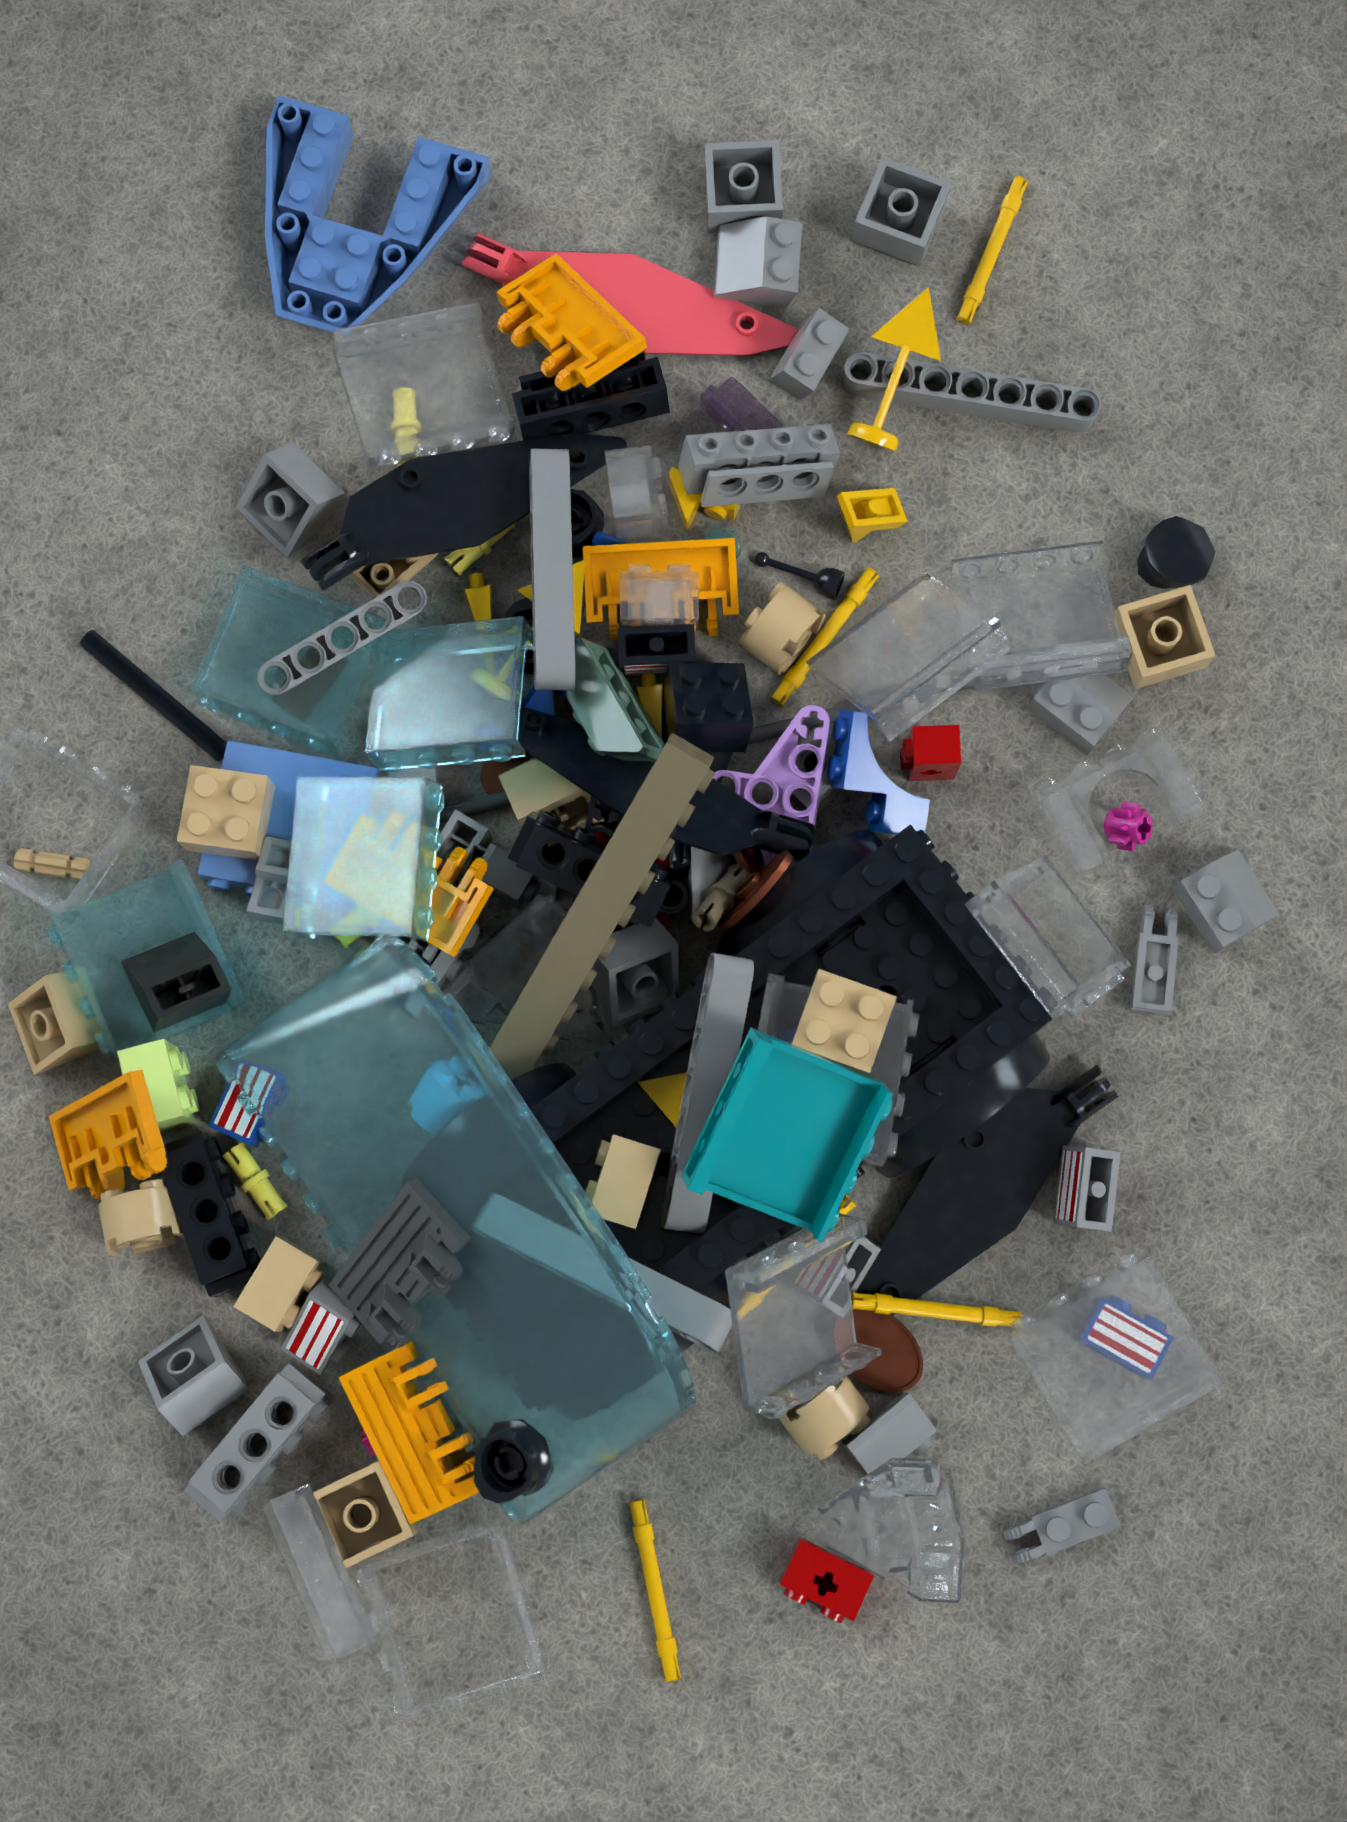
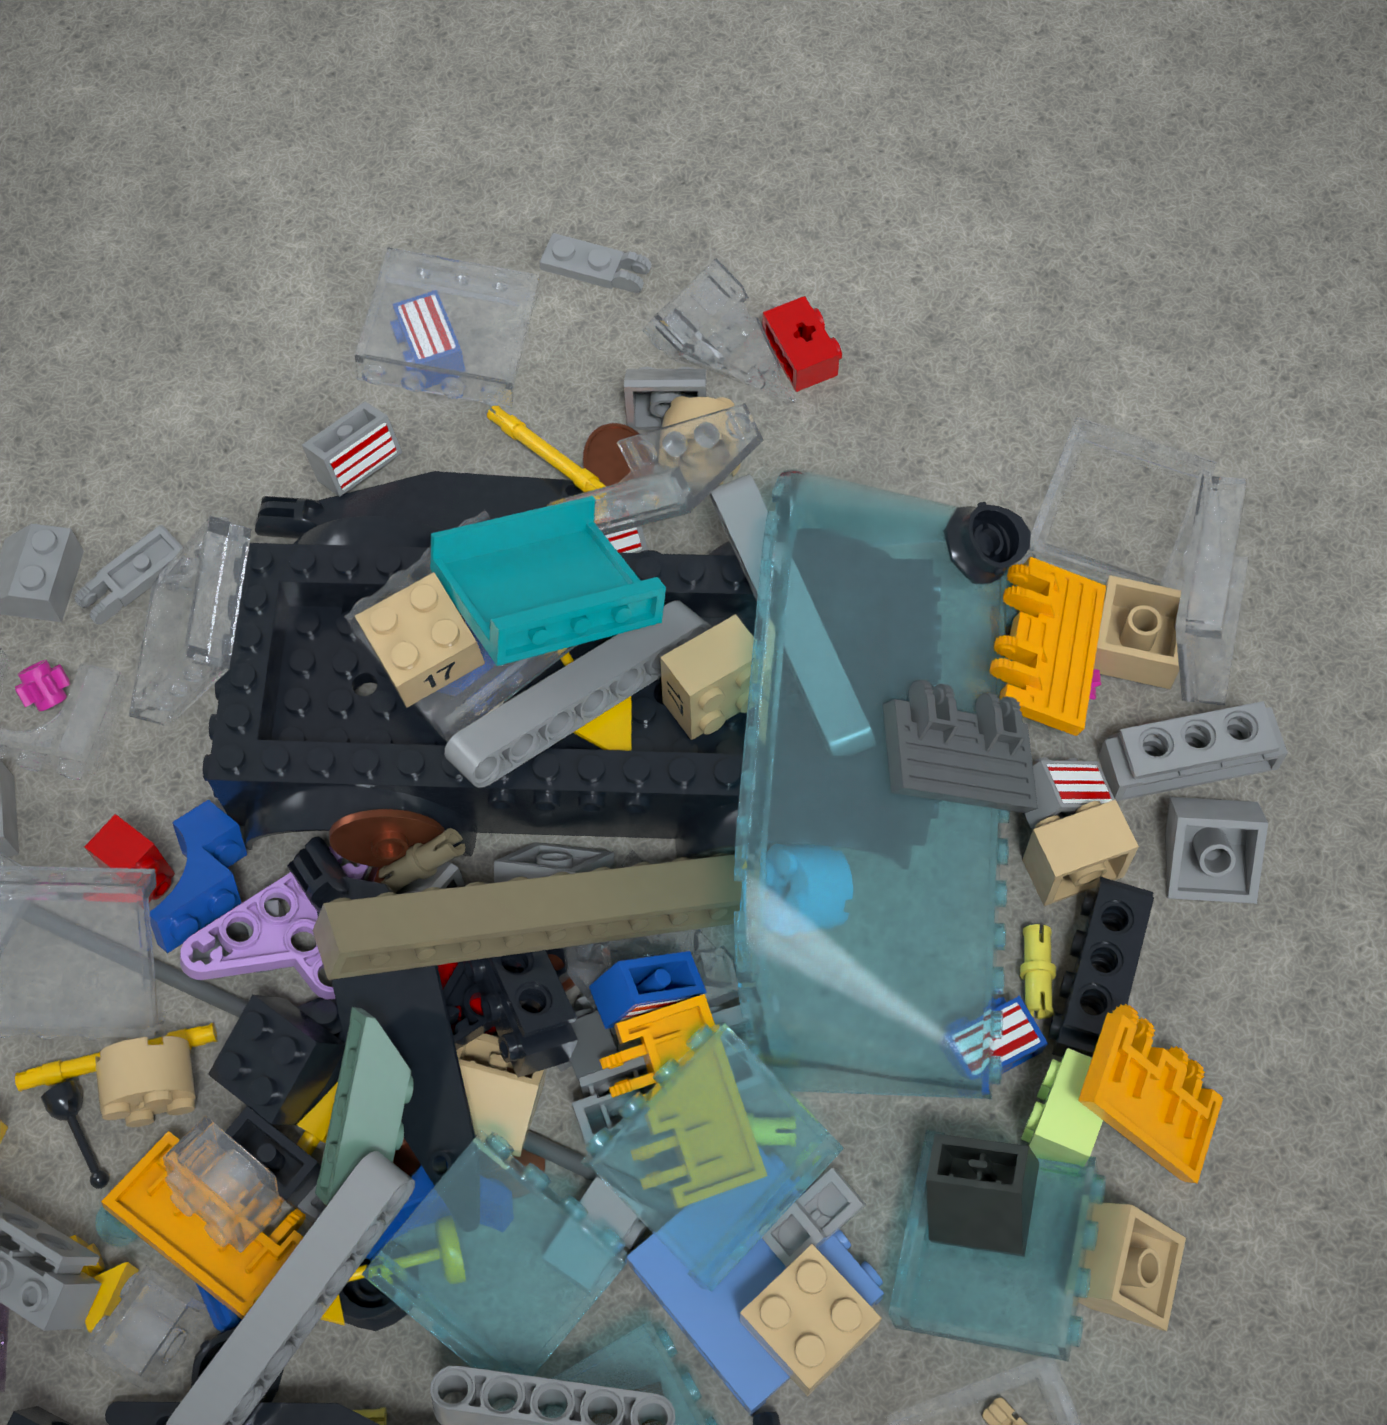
camera: 140 degrees left, 15 degrees down
(139, 1218) = (1176, 1004): tan brick -> none
(479, 597) = (391, 1357): yellow piece -> none
(492, 931) = (645, 986): none -> blue brick
(665, 1641) = (959, 394): yellow piece -> none

